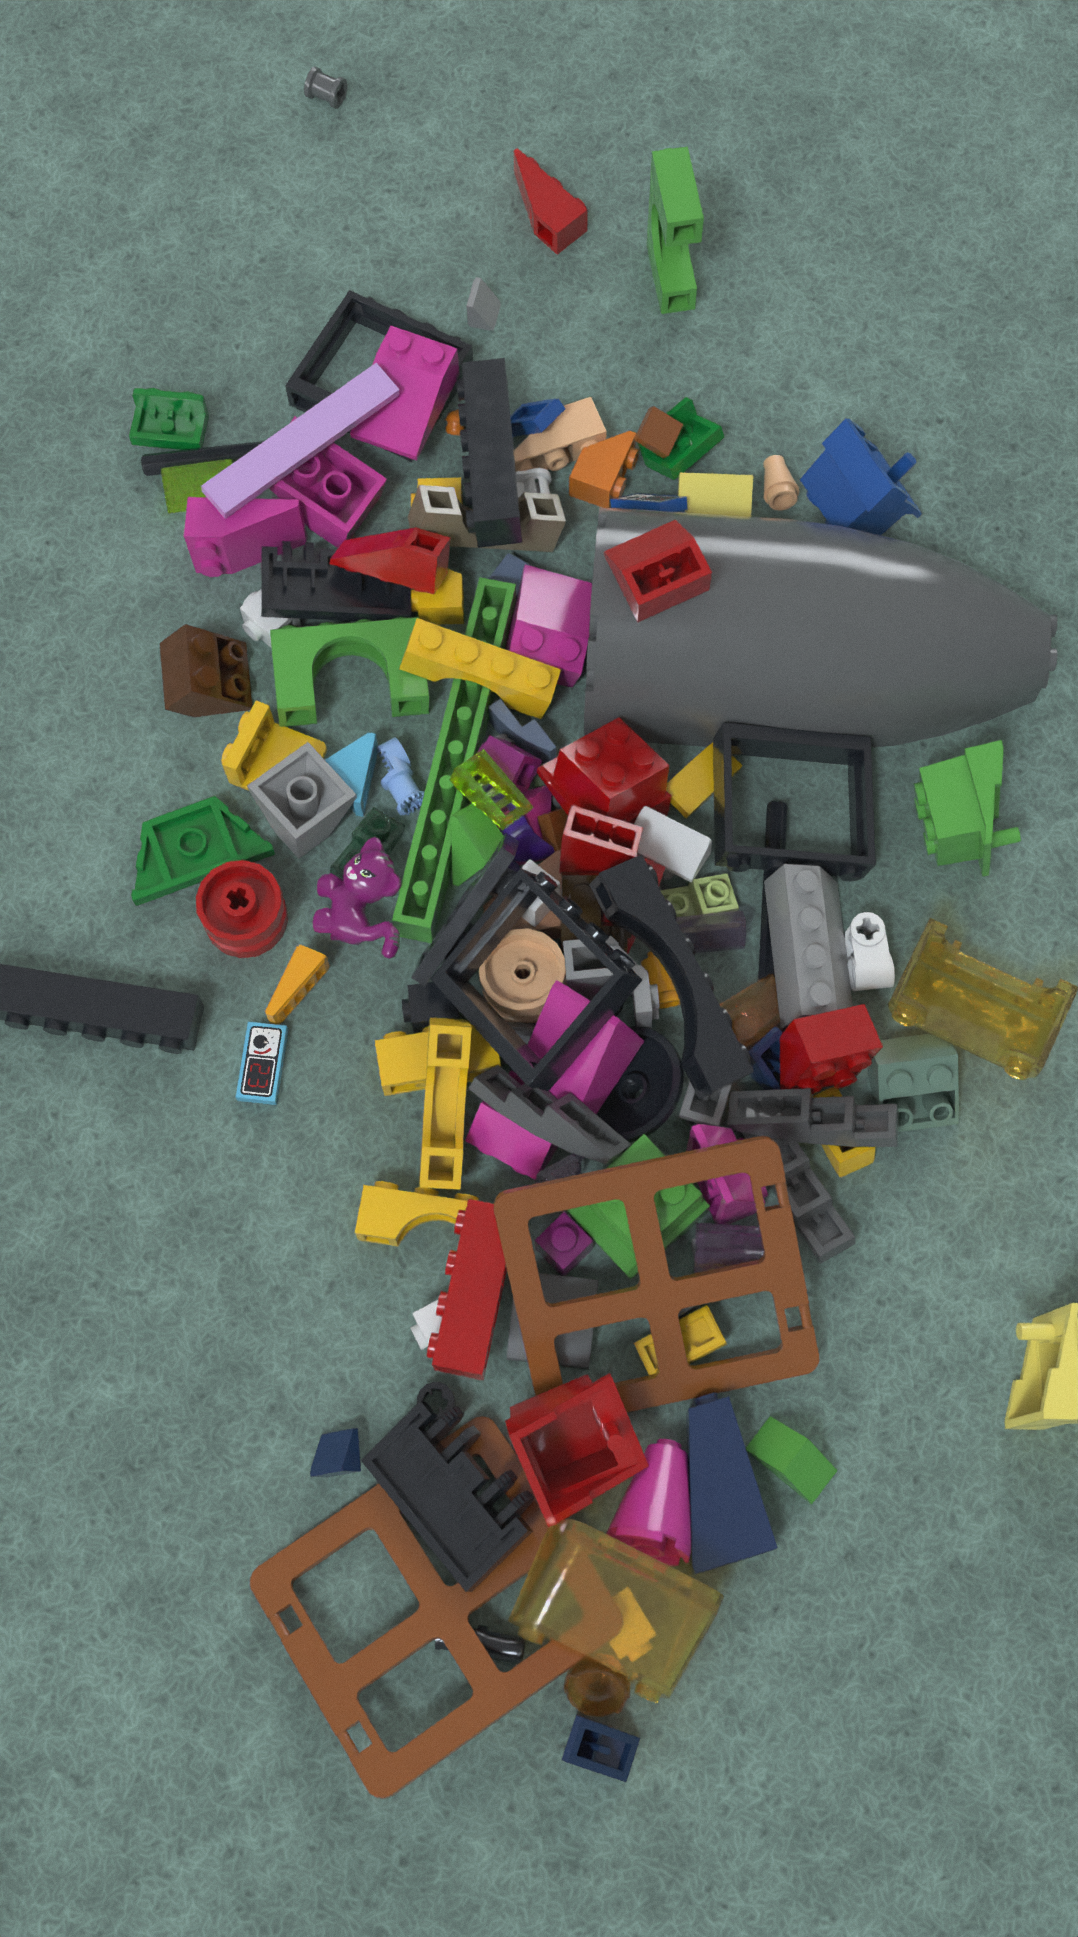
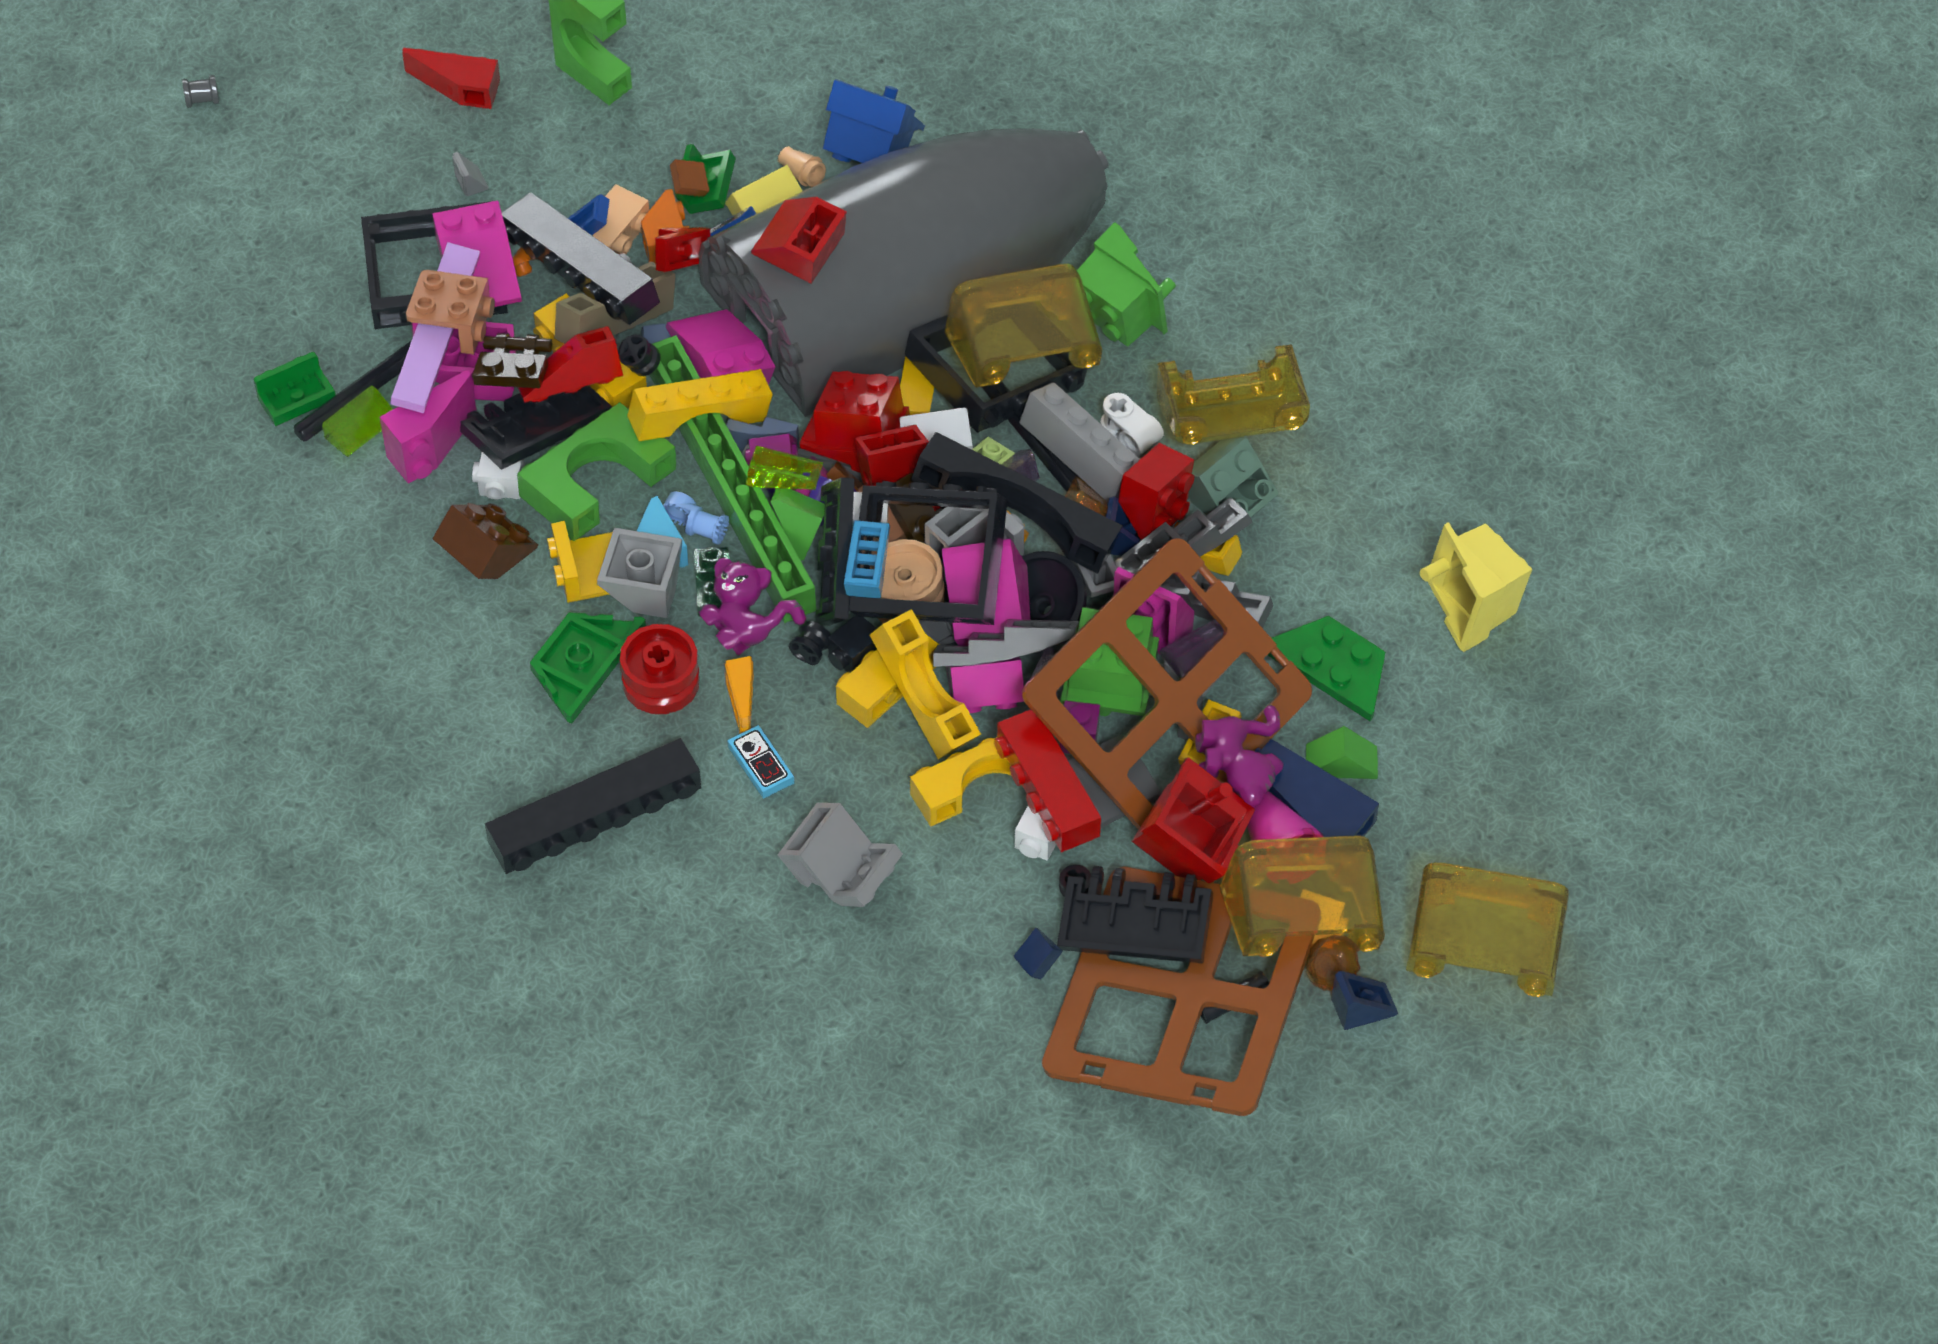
camera: 40 degrees left, 15 degrees down
(242, 1217) = (838, 856): none -> light grey piece
(329, 429) = (453, 302): none -> nougat bracket
(336, 525) = (512, 369): none -> dark brown plate
(396, 975) = (810, 642): none -> black wheel
(462, 583) = (631, 351): none -> black wheel
(463, 933) = (862, 581): none -> dark azure slope
(585, 495) = (679, 247): none -> red slope
(672, 1422) = (1246, 770): none -> magenta animal
(775, 1775) = (1488, 925): none -> clear yellow windscreen
(832, 787) = (1021, 319): none -> clear yellow windscreen
(868, 1347) = (1336, 662): none -> green wing

